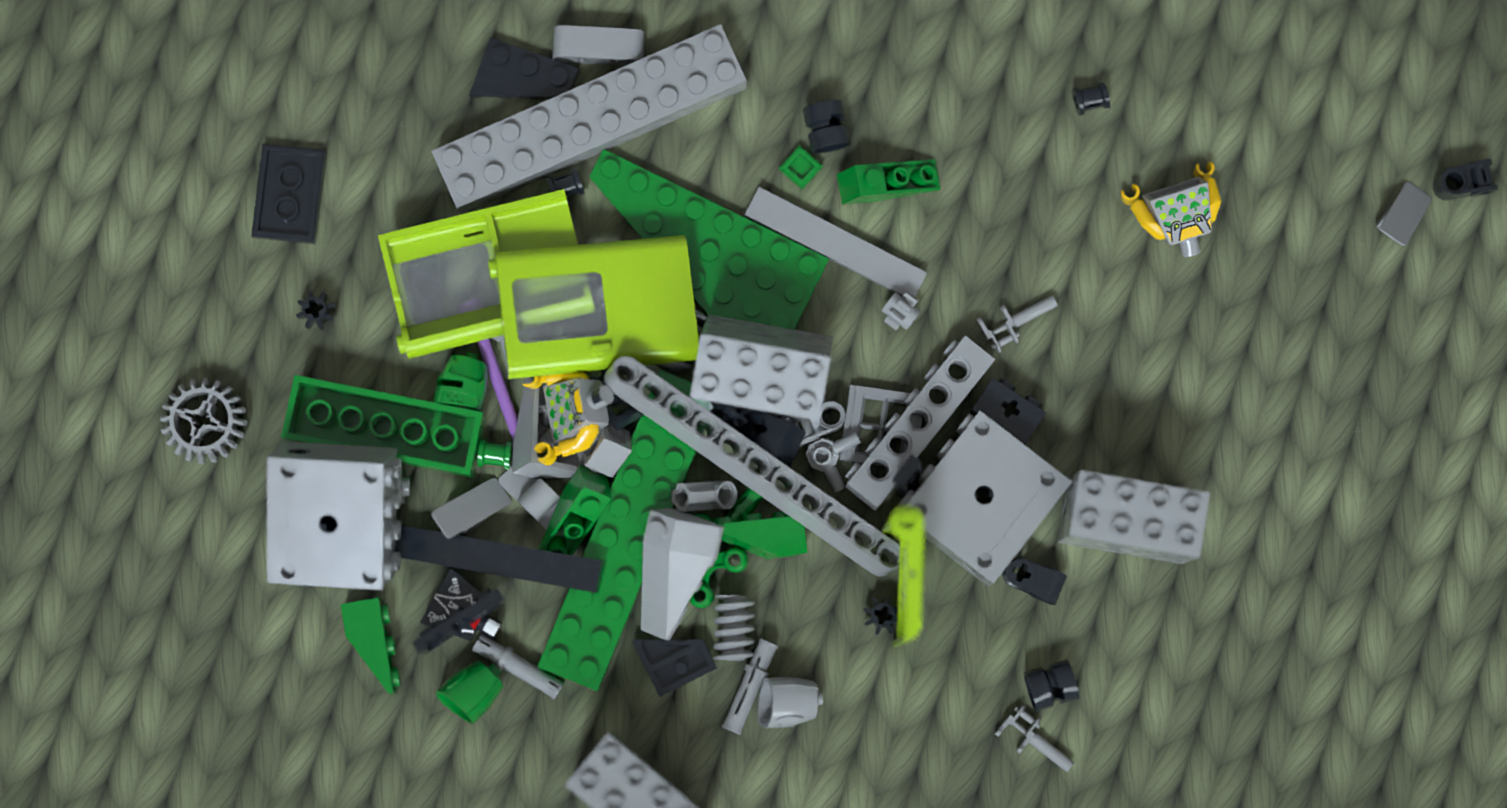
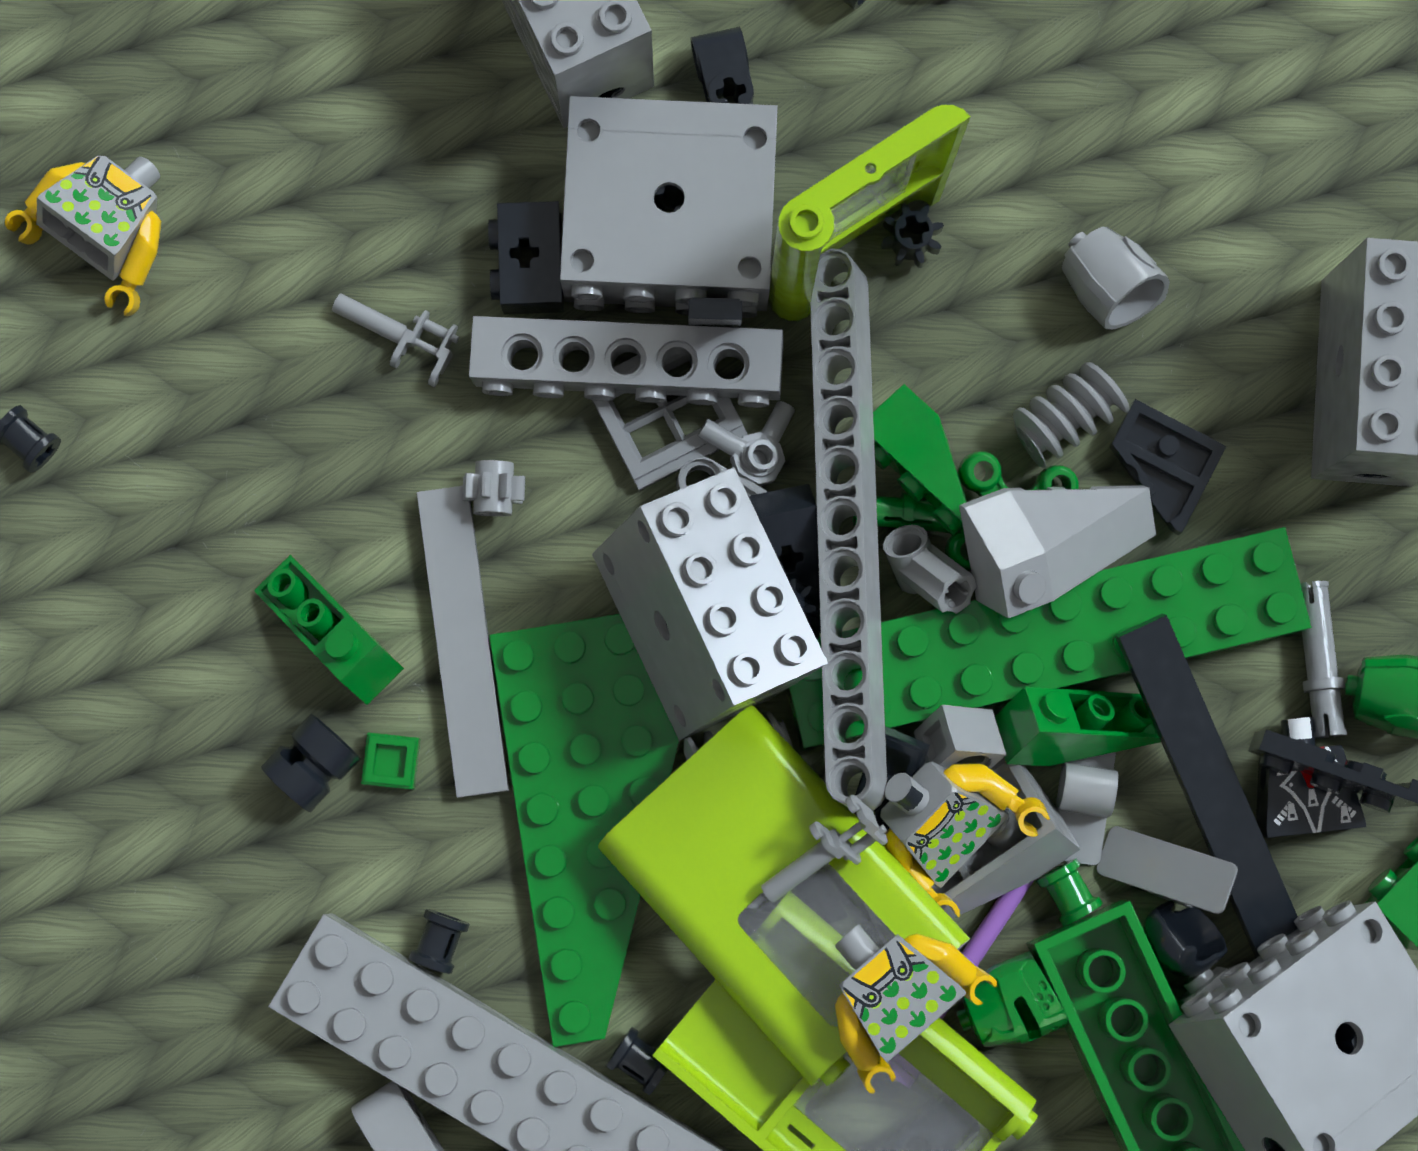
camera: 125 degrees left, 0 degrees up
(430, 491) = (1184, 939): none -> black hair
(507, 320) = (897, 995): none -> torso
(601, 339) = (830, 846): none -> light grey piece
(694, 129) = (438, 941): none -> black bush
(750, 685) = (1182, 331): light grey pin -> none

